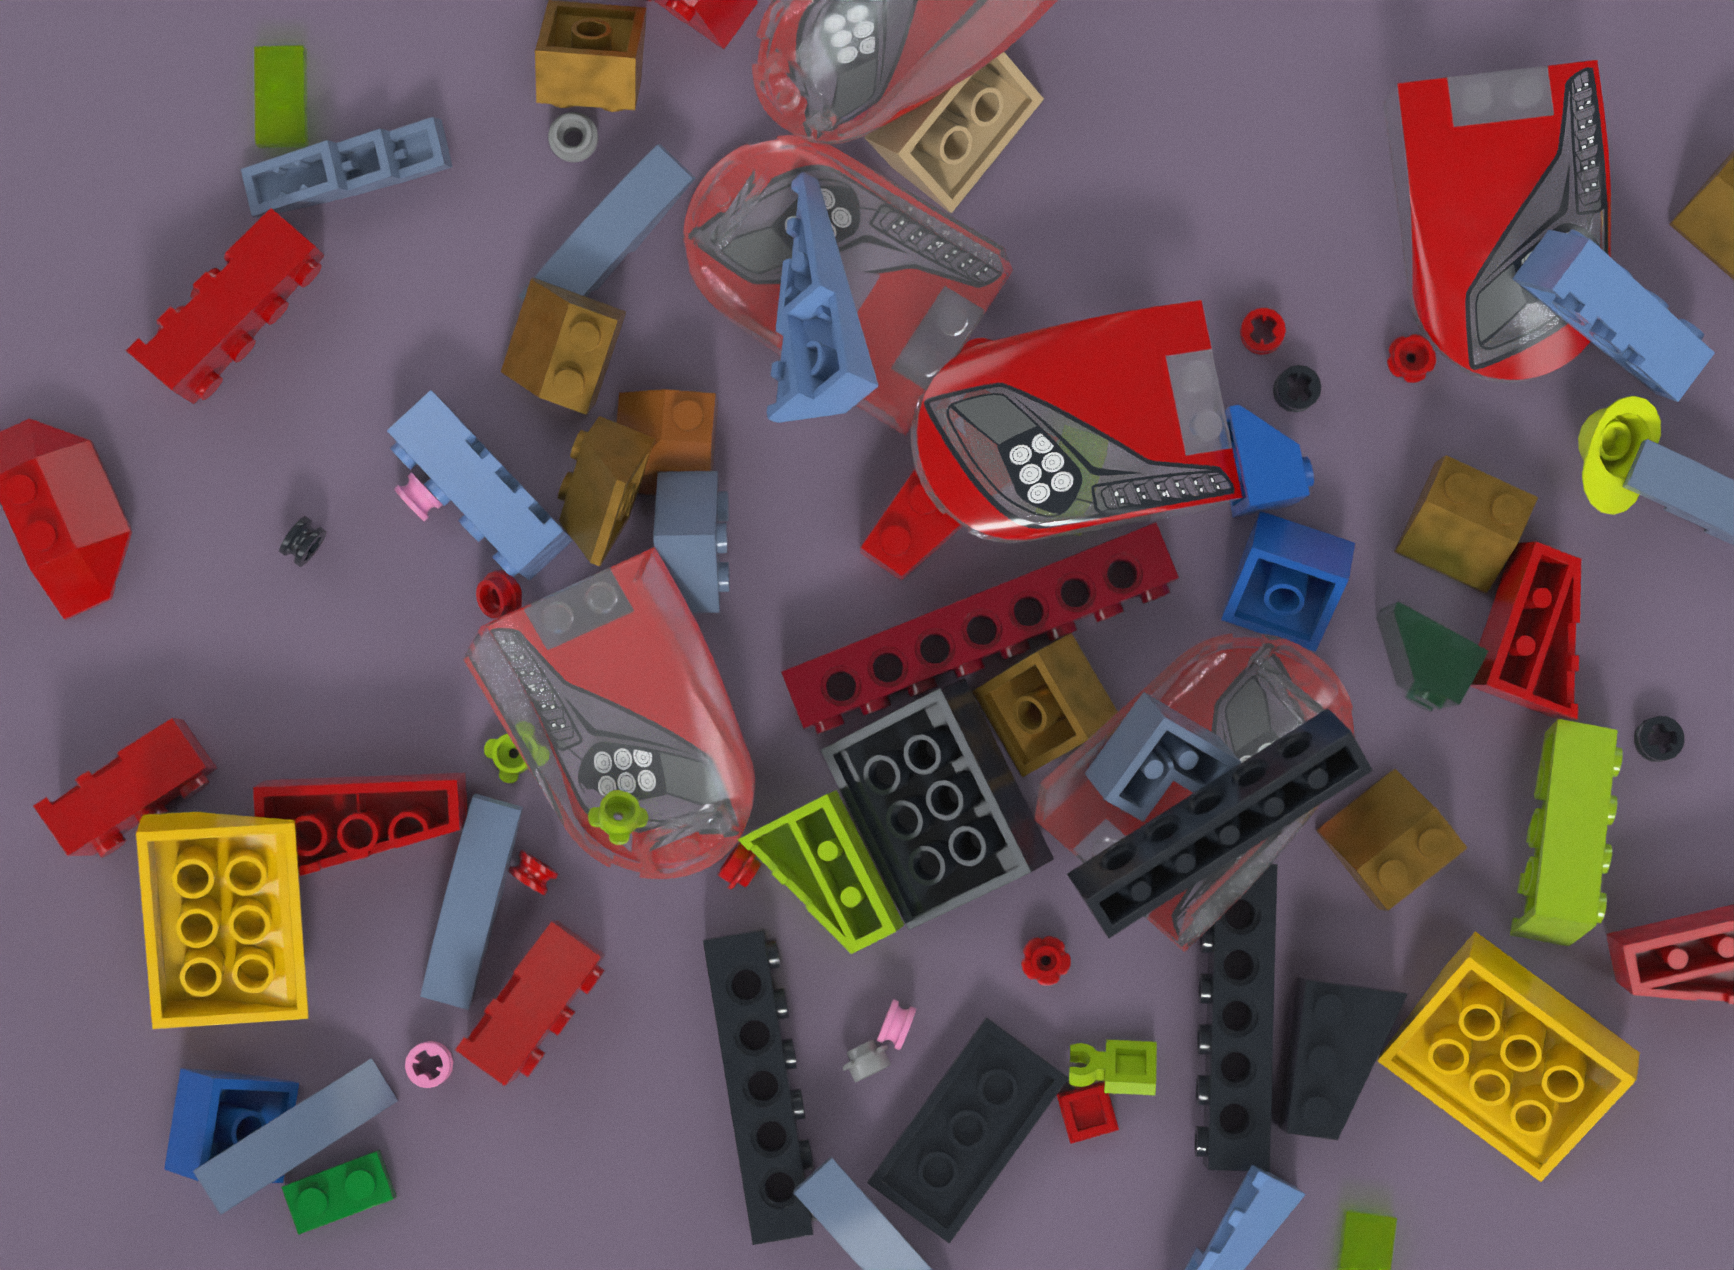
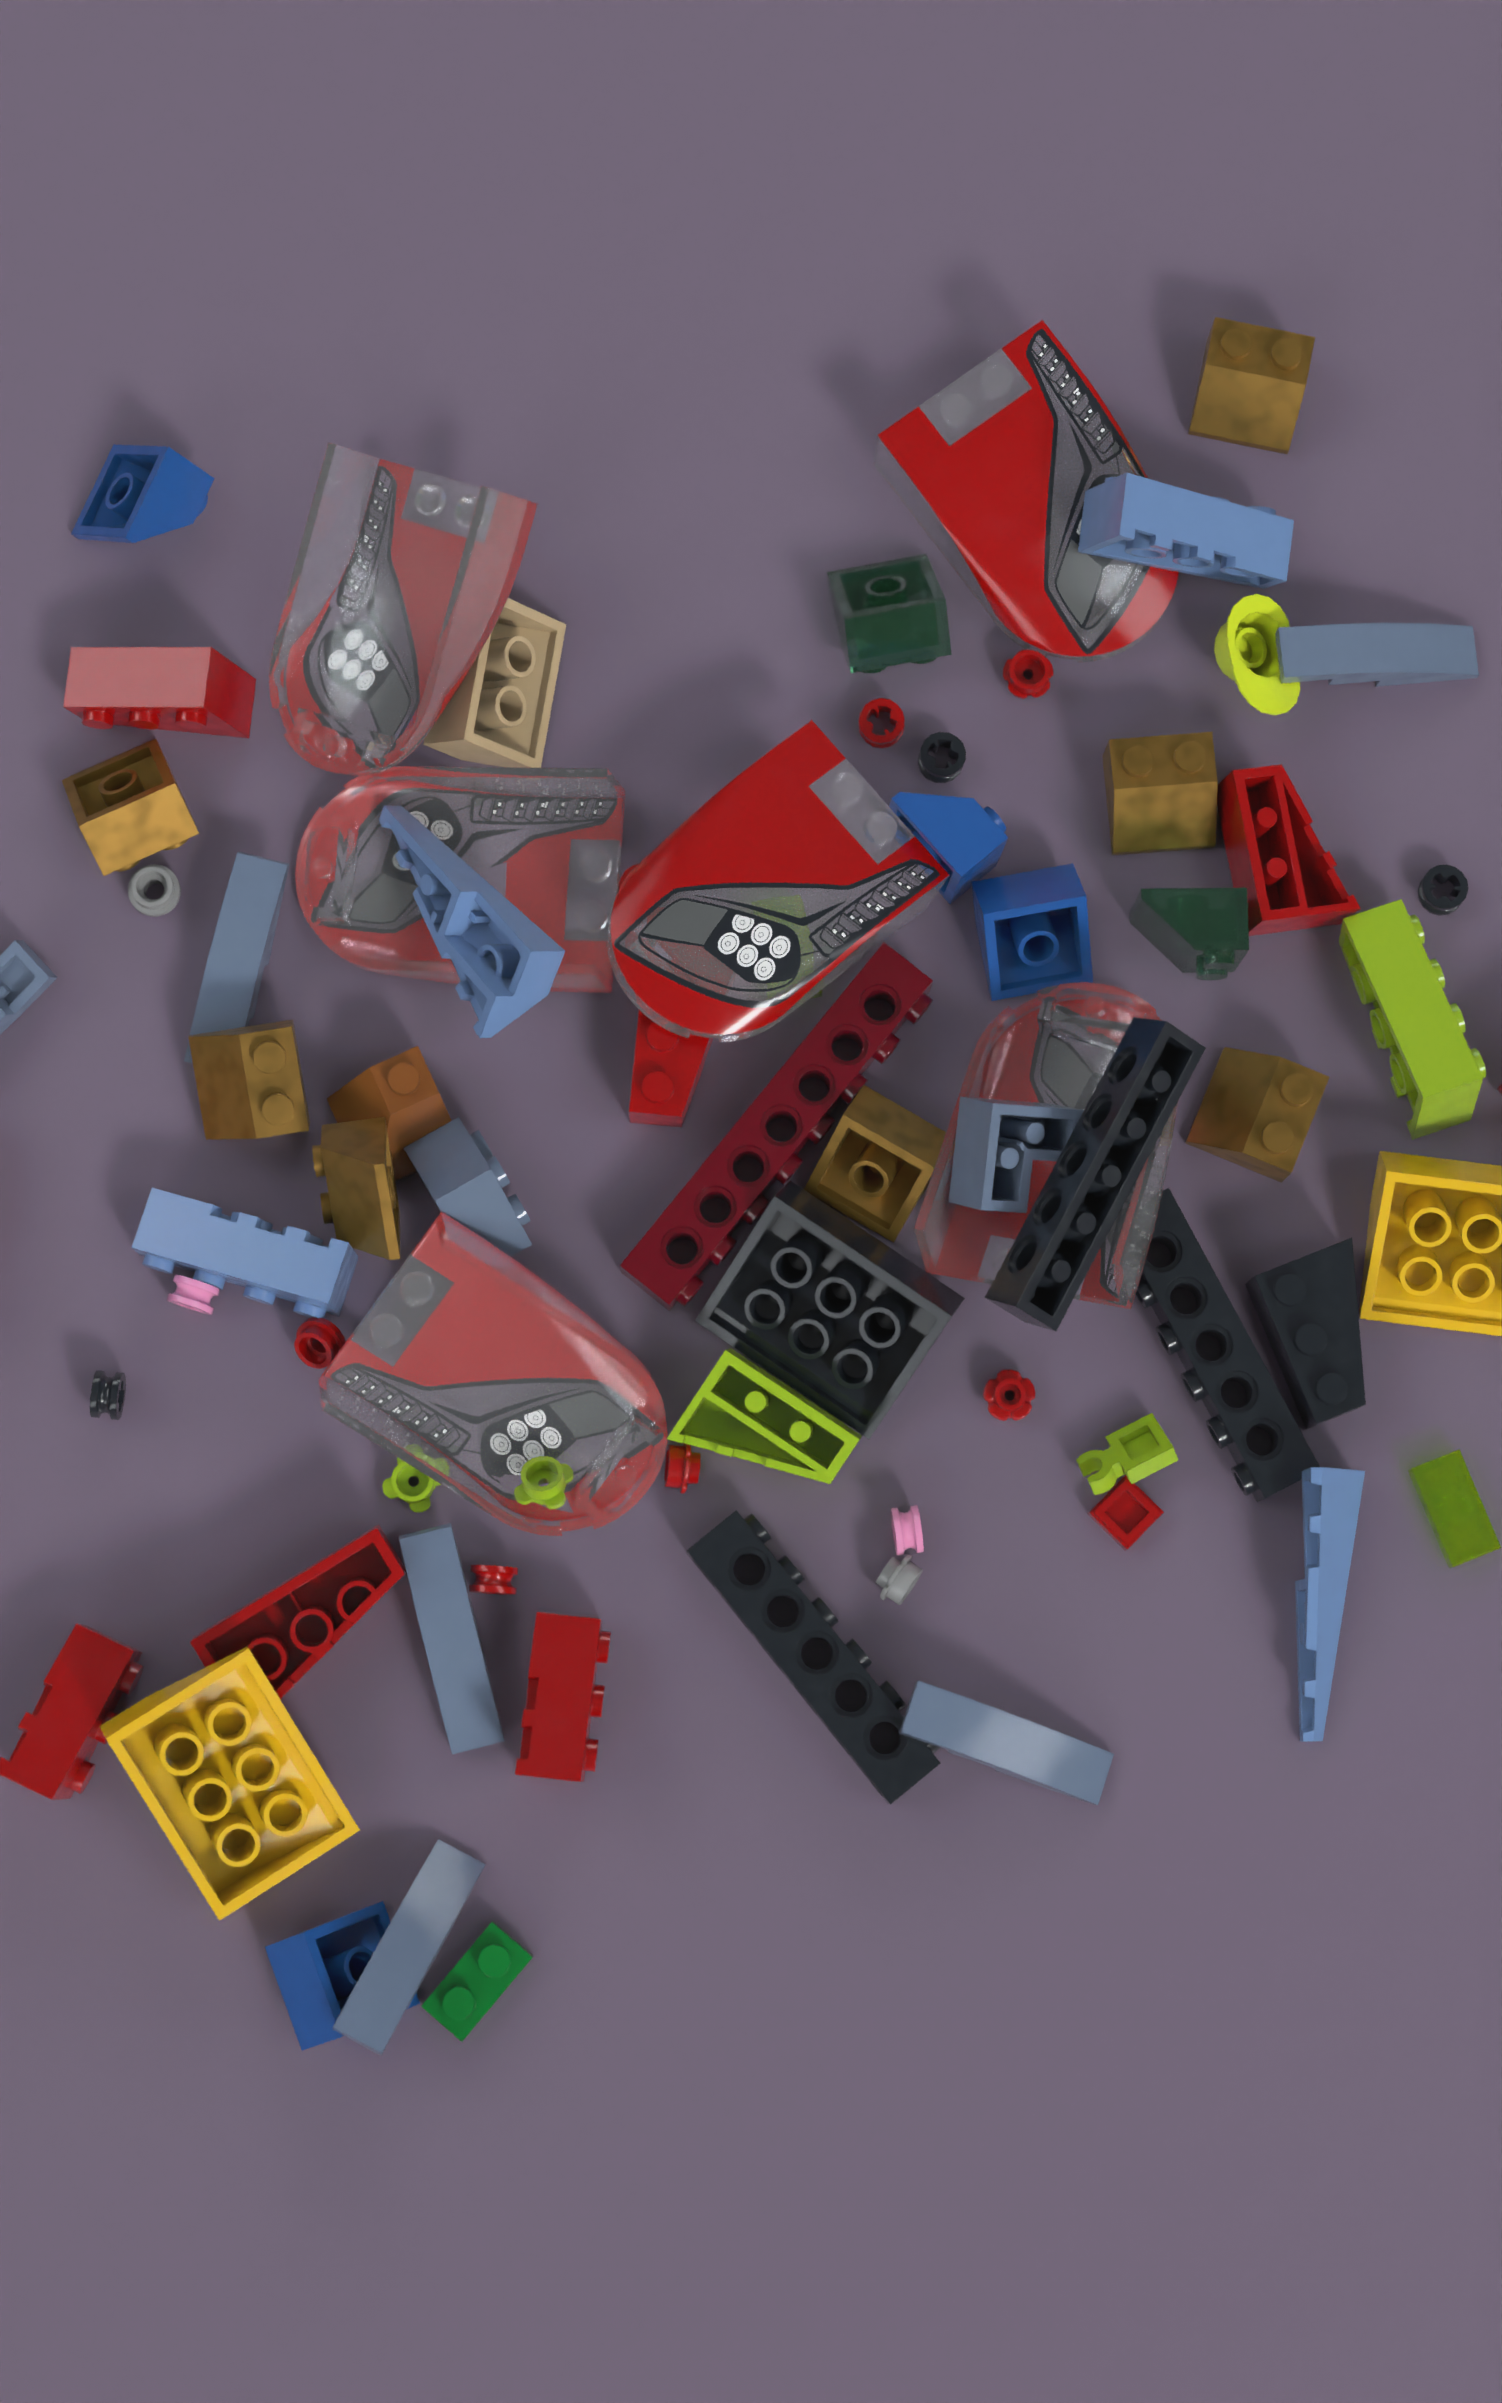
camera: 35 degrees left, 5 degrees down
(425, 1079) = (493, 1796): bright pink bush -> none
(967, 1130) = (1026, 1590): black plate -> none
(1322, 241) = (890, 614): none -> clear green slope

